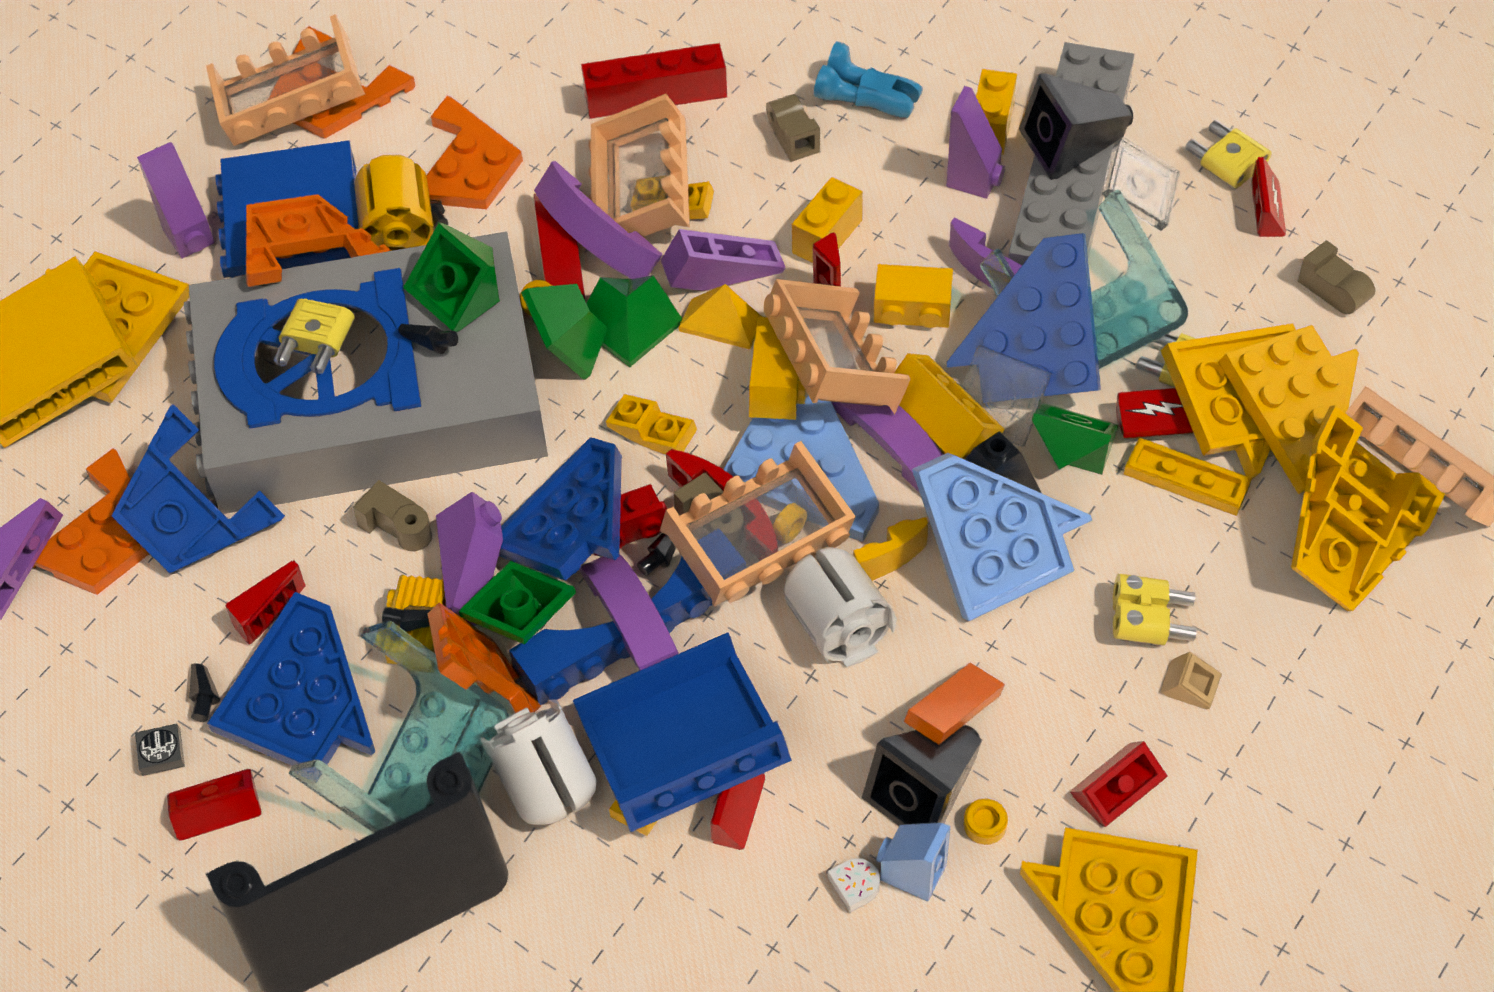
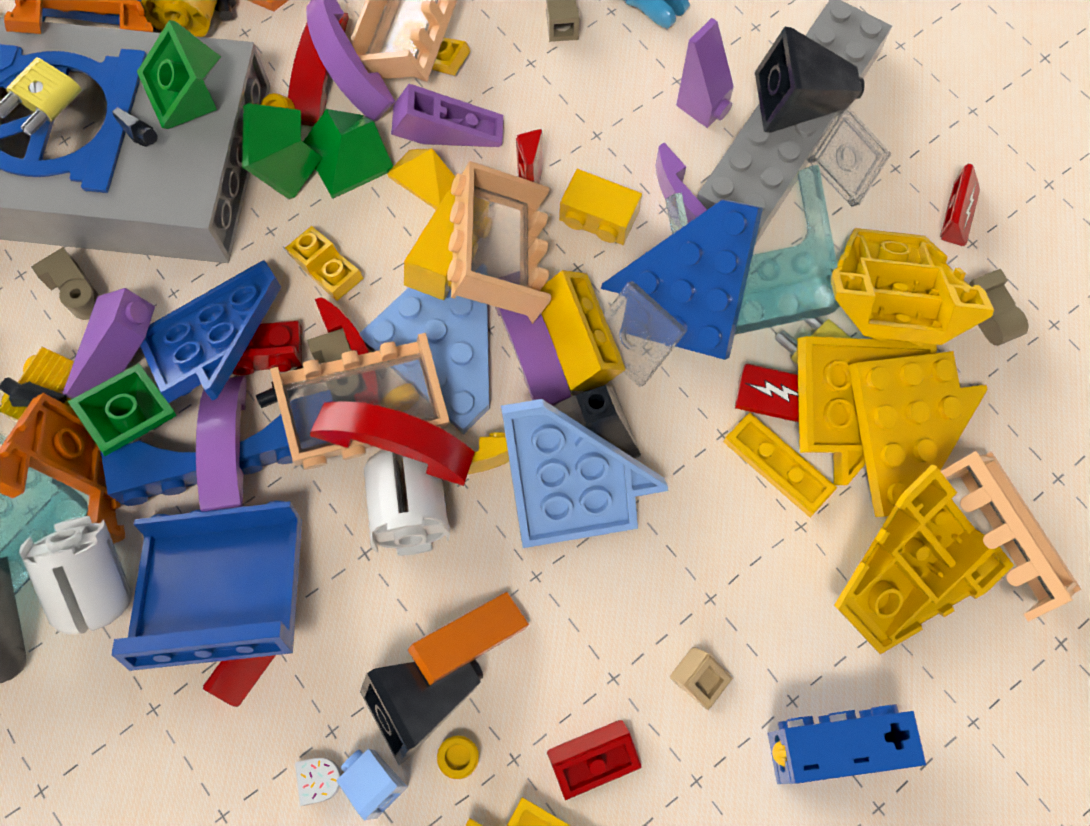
camera: 15 degrees right, 15 degrees up
(809, 532) = (397, 433): none -> red slope
(833, 209) = (554, 108): yellow brick -> none
(997, 100) = (747, 40): yellow brick -> none
(1075, 437) = (688, 392): green slope -> none
(1143, 610) = (683, 593): light yellow piece -> none
(1230, 157) = (945, 153): light yellow piece -> none
(1245, 282) = (905, 290): none -> yellow wedge
(1350, 685) = (845, 745): none -> blue piece

